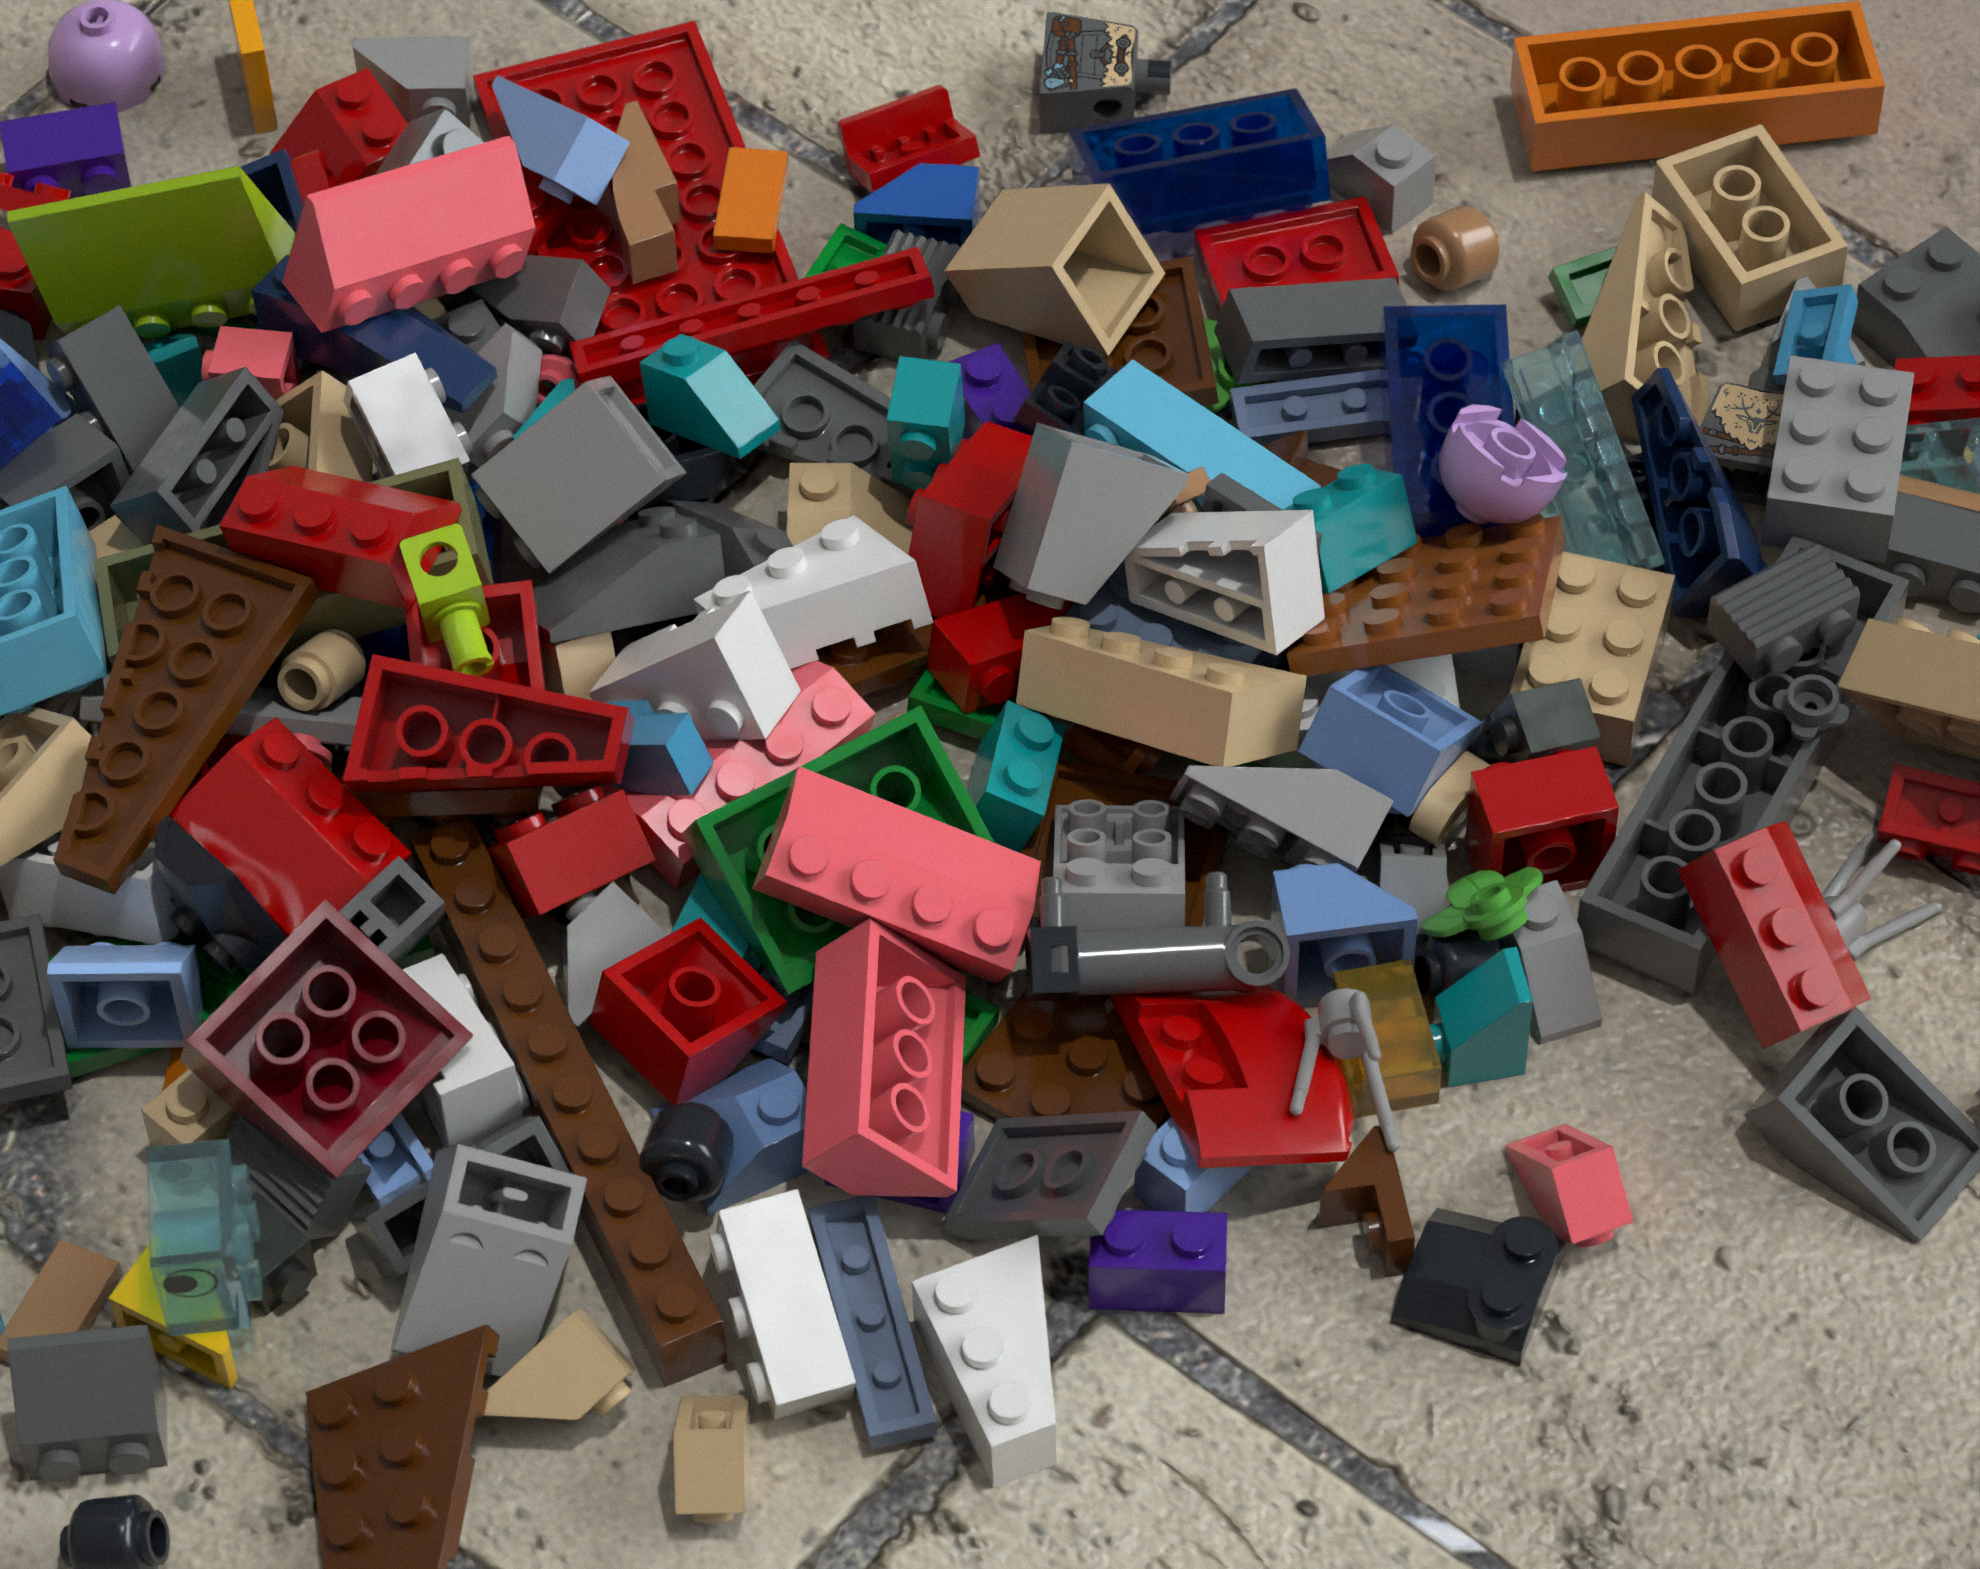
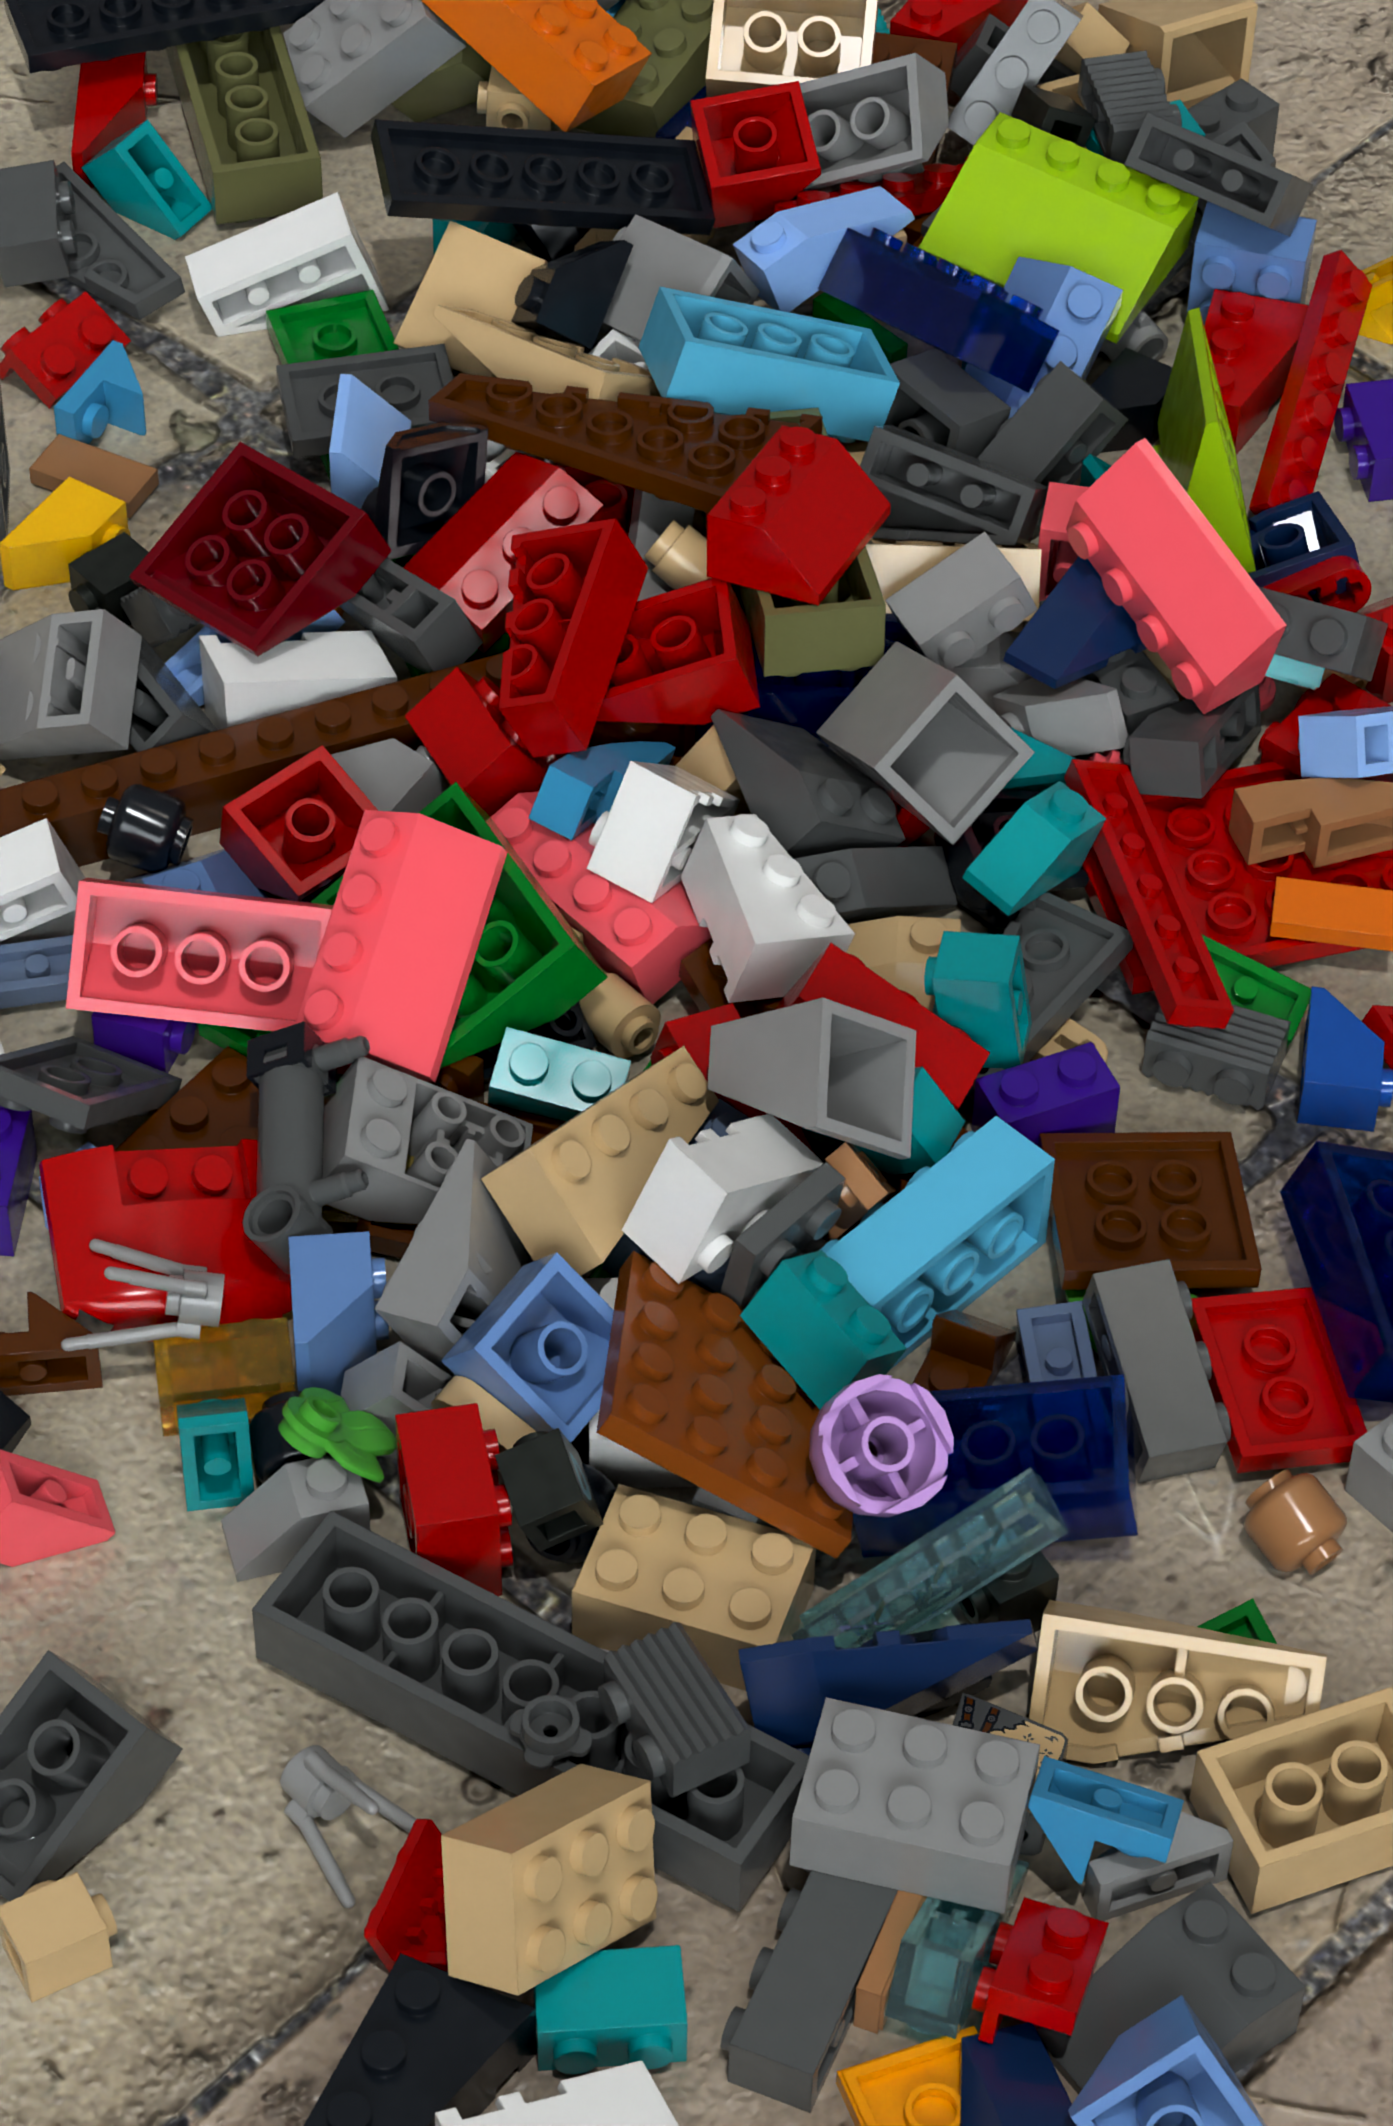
camera: 90 degrees right, 5 degrees down
(202, 1237) = (76, 489): clear light blue brick -> none
(451, 604) = (674, 588): lime bracket -> none
(1057, 265) = (1219, 1137): tan slope -> none
(1064, 387) = (1059, 1130): black slope -> none
(1774, 933) = (262, 1681): red slope -> none

